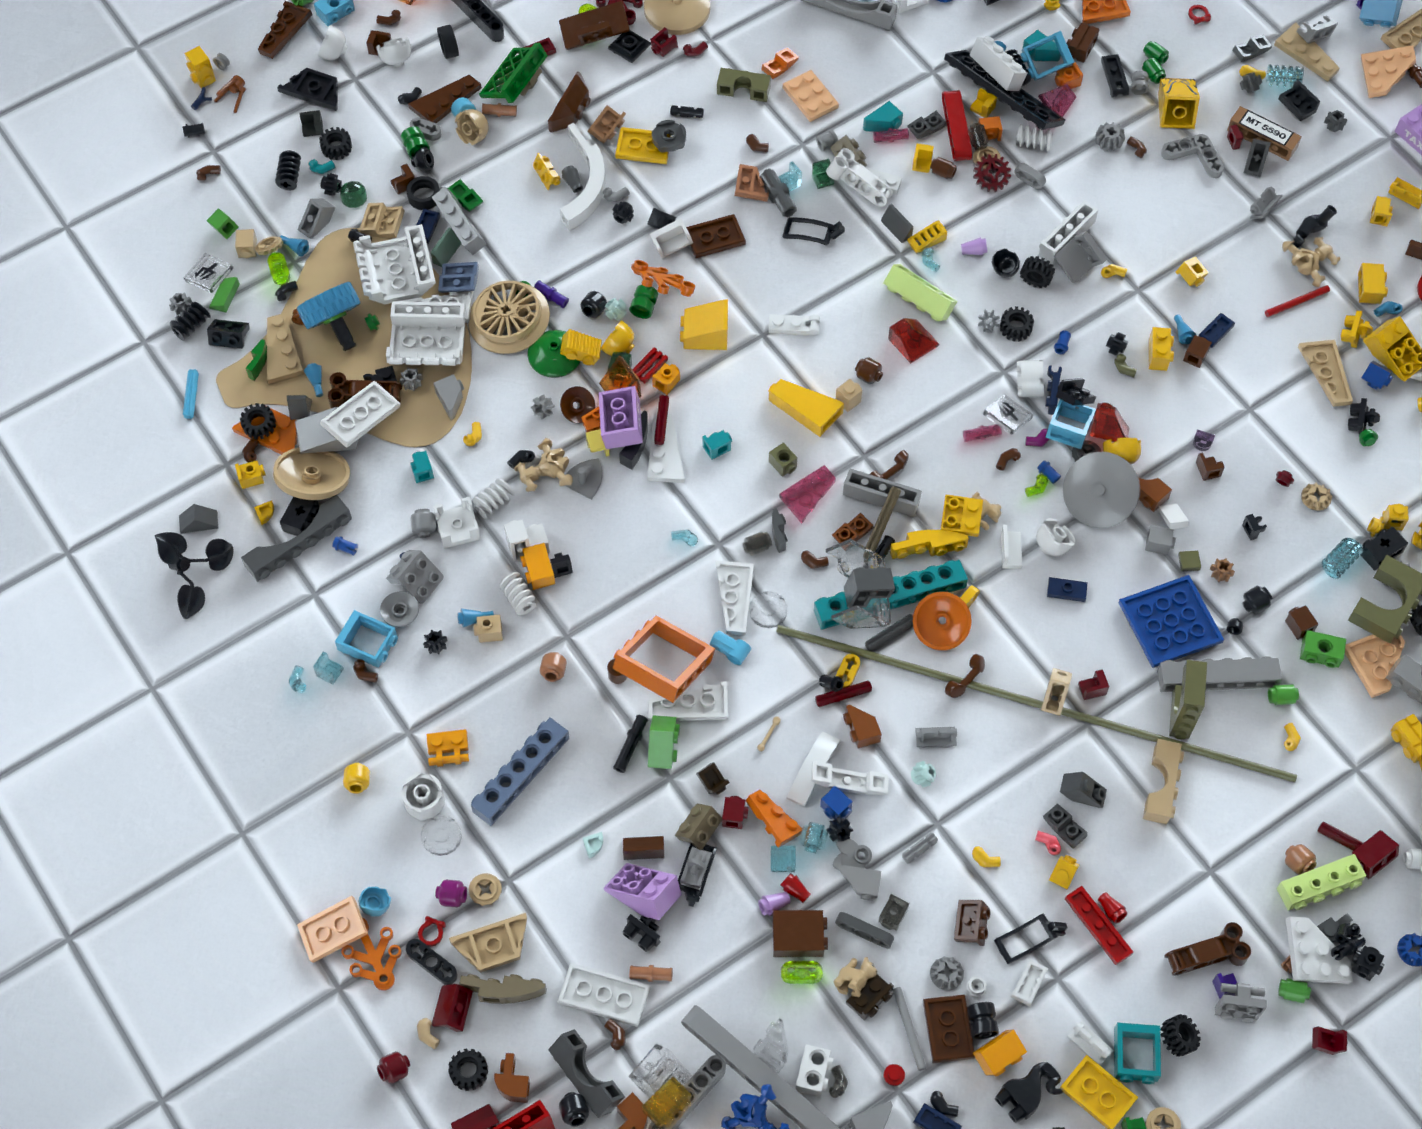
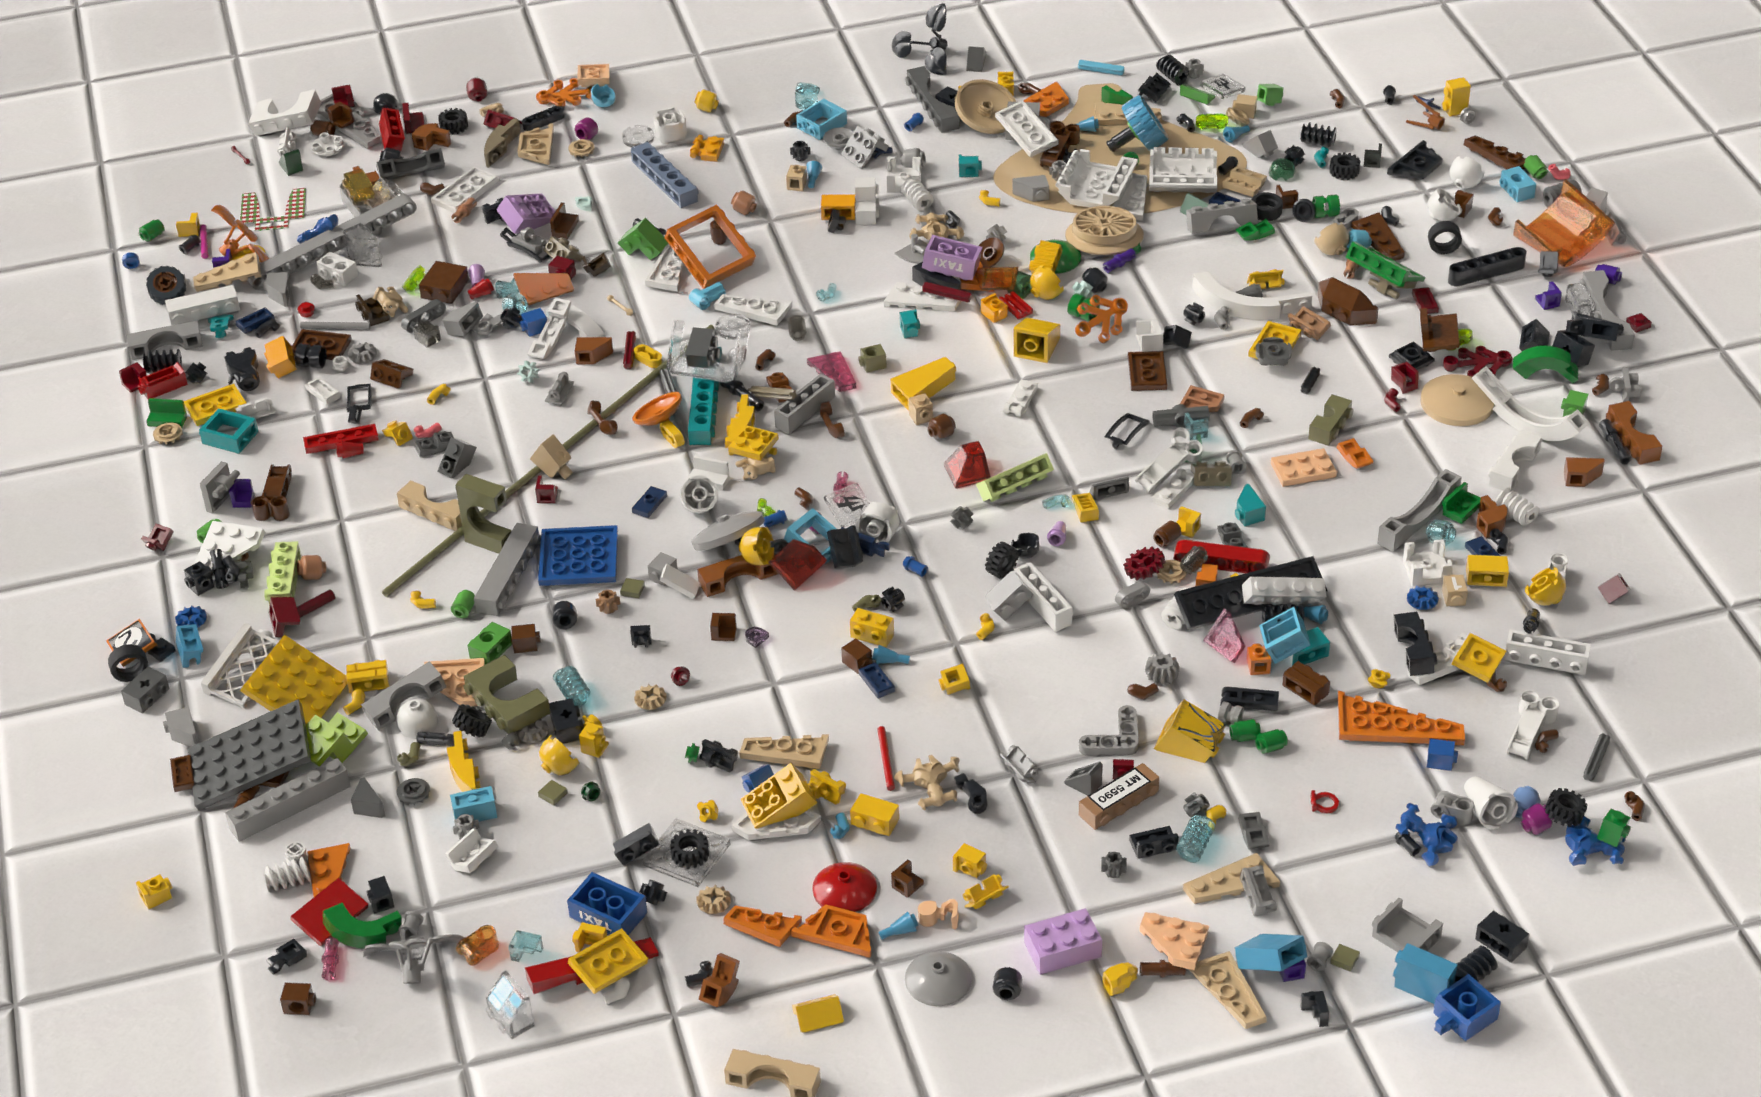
camera: 110 degrees right, 20 degrees down
(254, 412) = (1049, 86): black tyre -> none
(299, 406) = (1058, 109): dark grey slope -> none
(440, 925) = (567, 126): red piece -> none
(458, 277) = (1158, 212): sand blue slope -> none
(518, 594) = (816, 194): white piece -> none
(778, 534) = (799, 339): dark grey slope -> none
(834, 683) = (637, 338): black pin -> none
(902, 134) = (1227, 508): clear pink pin -> none
(919, 848) = (470, 361): light grey axle -> none
(1016, 315) = (951, 532): black tyre -> none
(1184, 1026) = (215, 444): black tyre -> none
(1235, 626) = (548, 596): black hinge -> none

